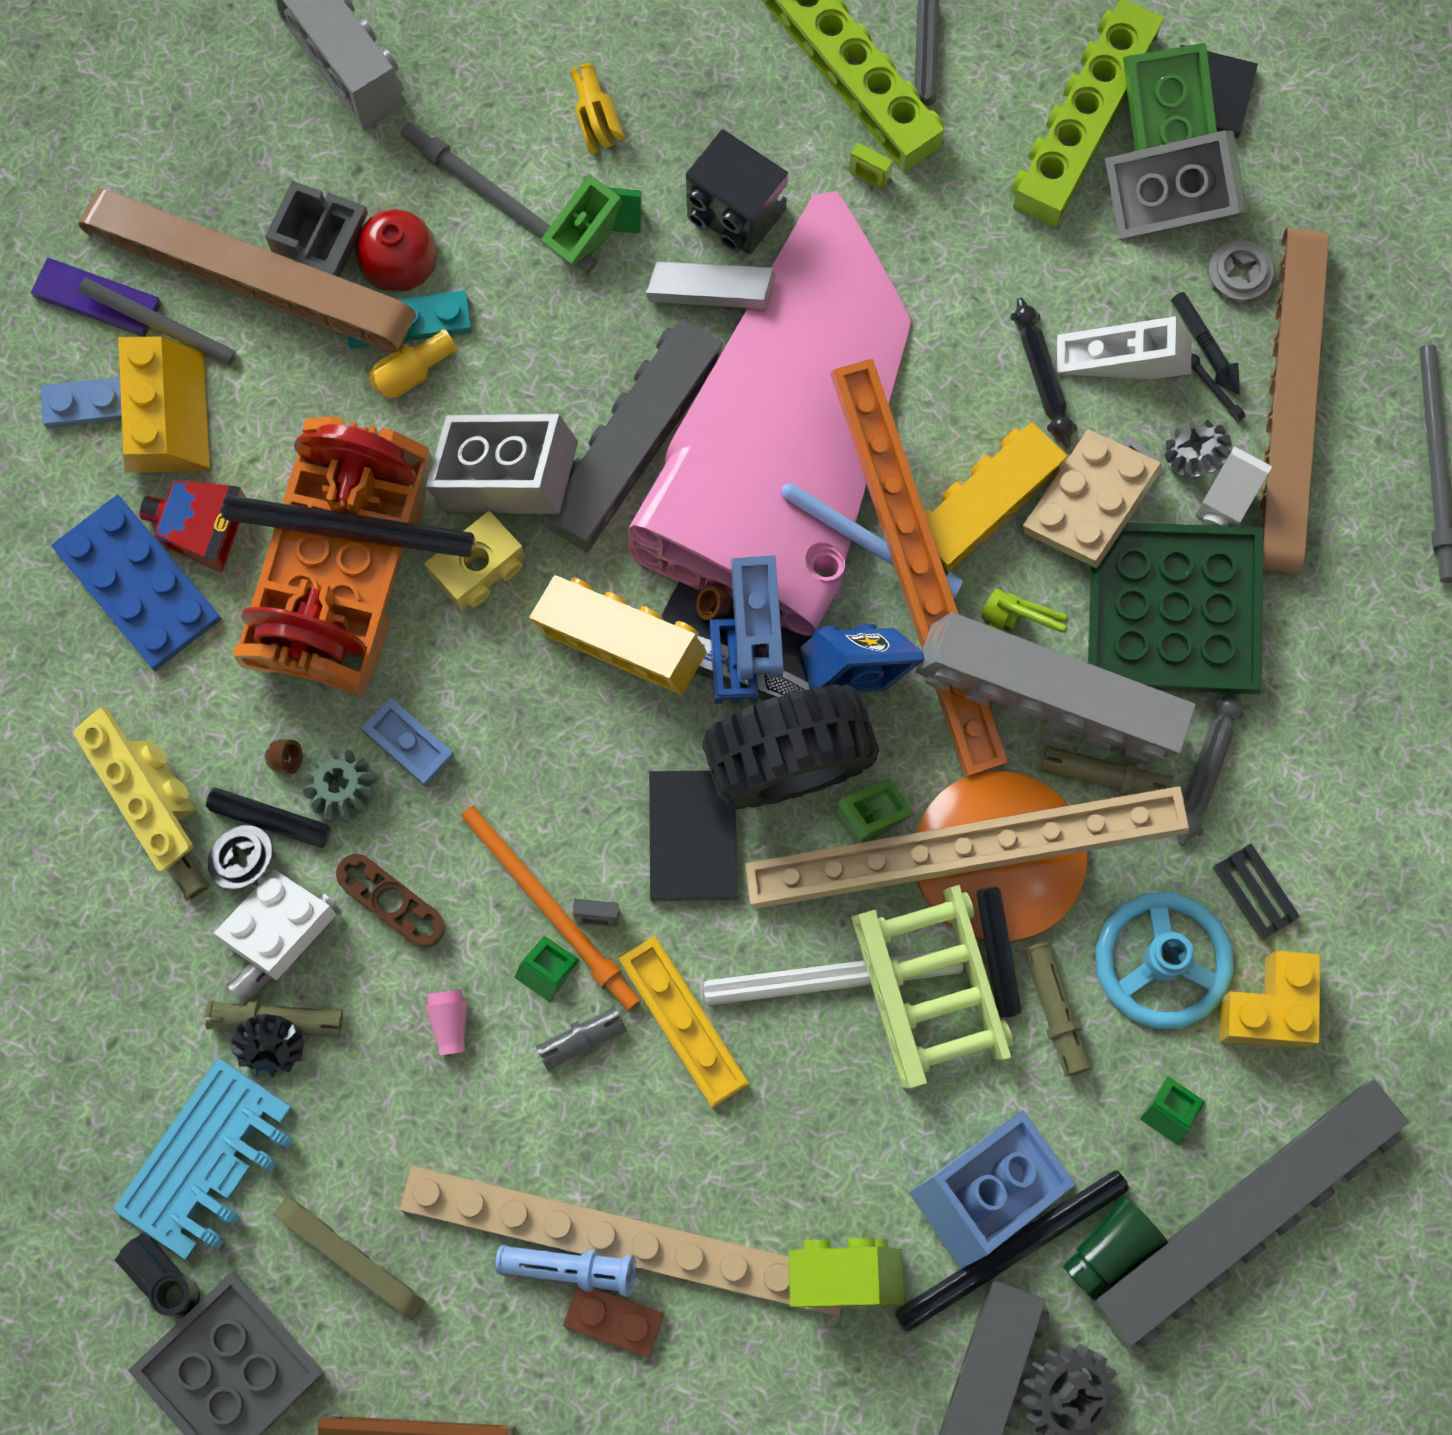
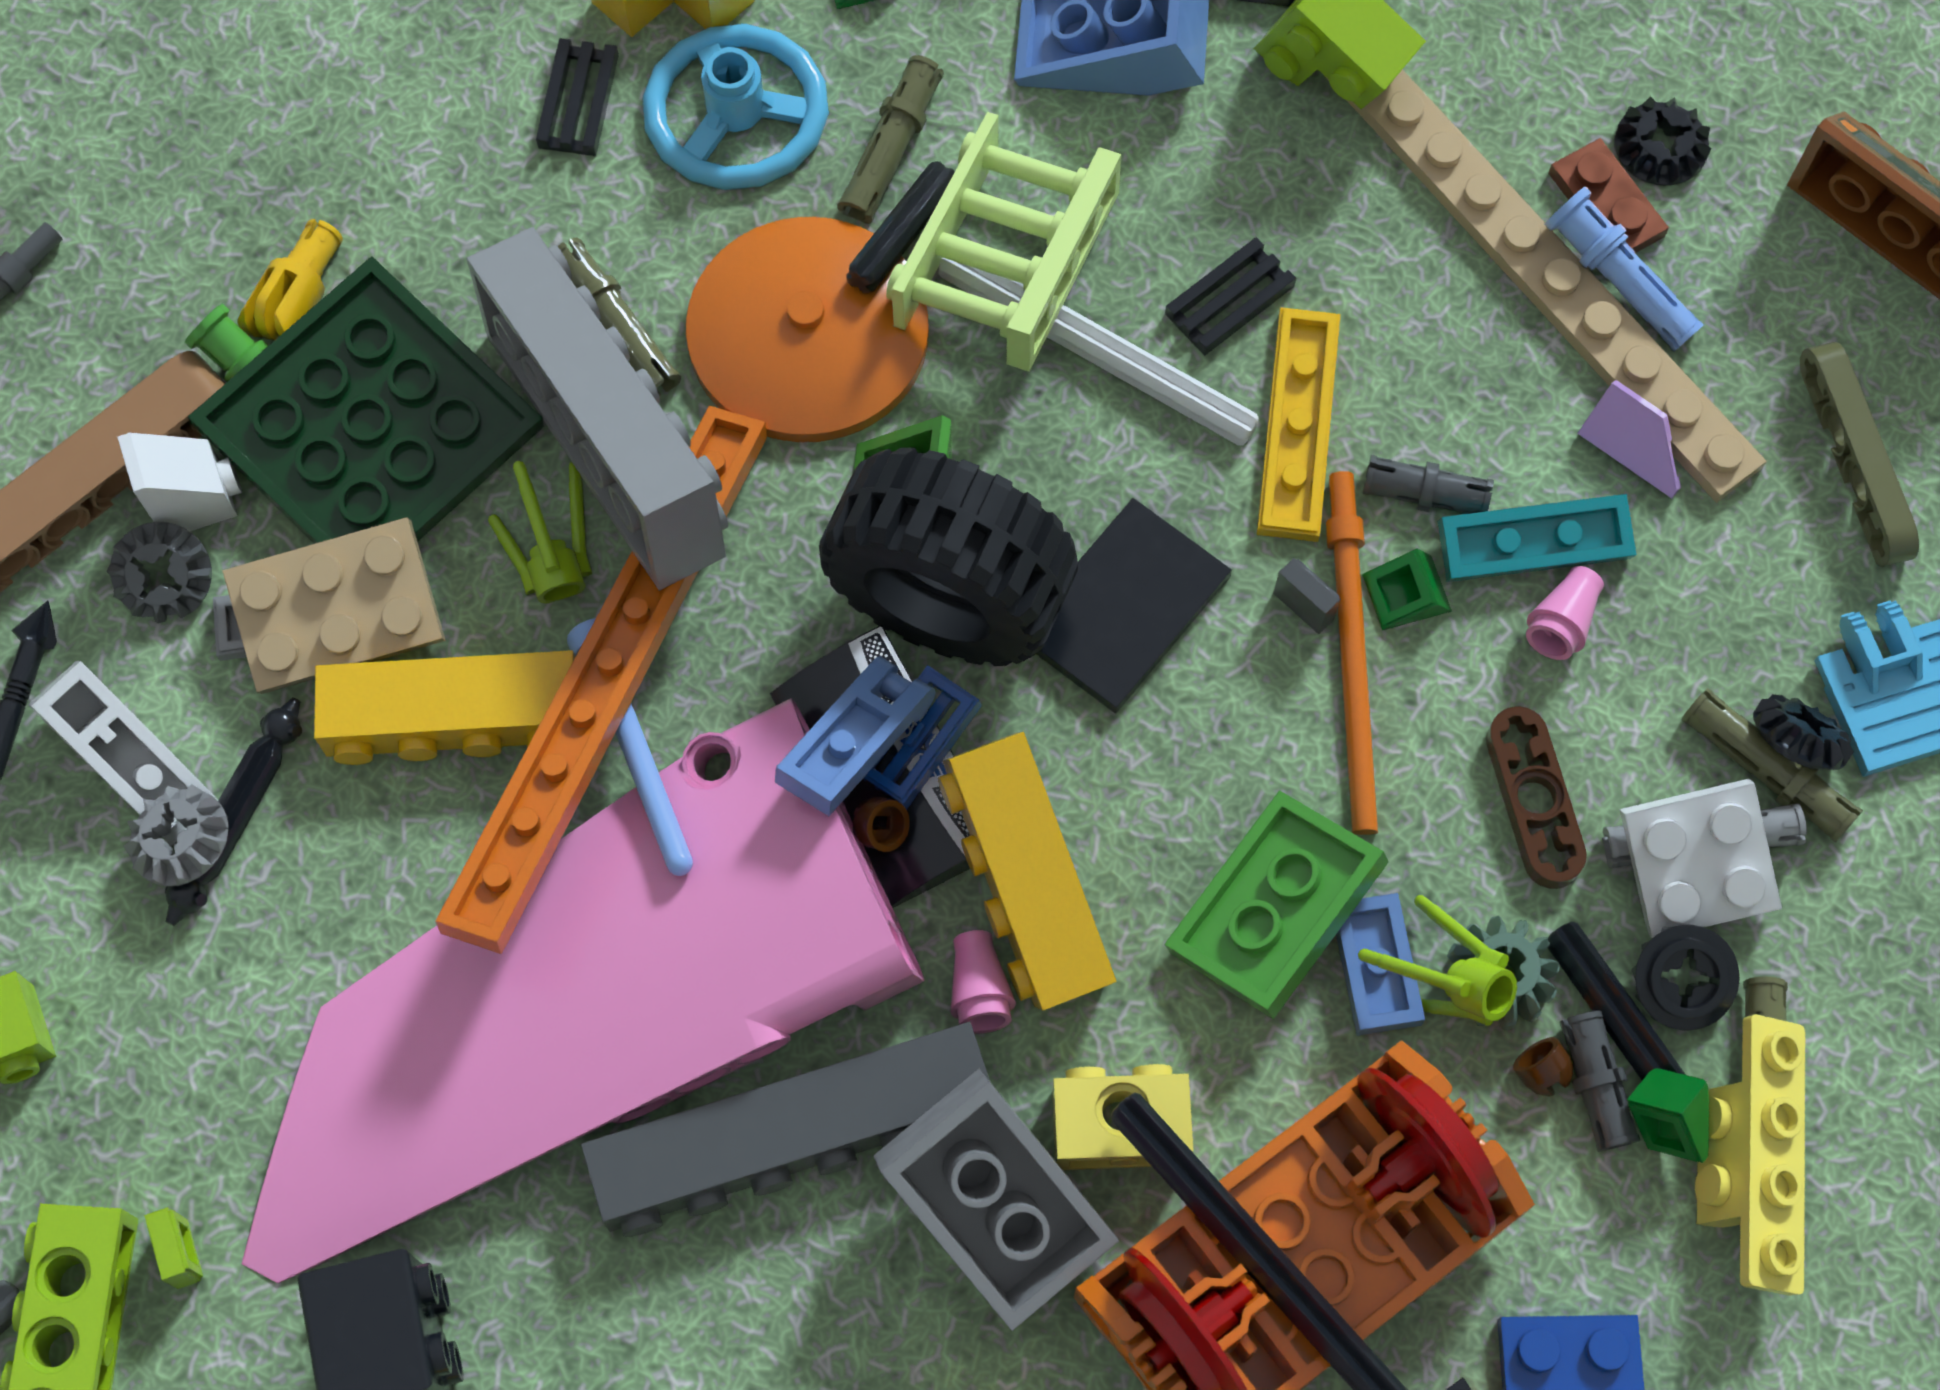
camera: 140 degrees left, 5 degrees down
(199, 775) = (1673, 1114): none -> green slope
(250, 770) = (1599, 1081): none -> dark grey pin
(345, 745) = (1477, 986): none -> lime plant
(481, 725) = (1276, 903): none -> bright green plate
(485, 1162) = (1634, 436): none -> lavender tile
(496, 1052) = (1536, 538): none -> teal plate
(600, 572) = (979, 984): none -> bright pink cone
(632, 1388) = (1649, 158): none -> black gear
(711, 285) = (522, 1247): tile -> none
(790, 1032) = (1265, 267): none -> black tile
(859, 657) = (772, 619): blue slope -> none
(967, 847) = (847, 328): tan plate -> none
(1059, 347) = (195, 848): none -> light grey gear
(1210, 763) = (549, 221): dark grey wheel -> none
(1234, 410) = (71, 591): black hinge -> none
(1288, 585) = (224, 342): none -> bright green bush
(1291, 649) = (290, 283): none -> yellow arm

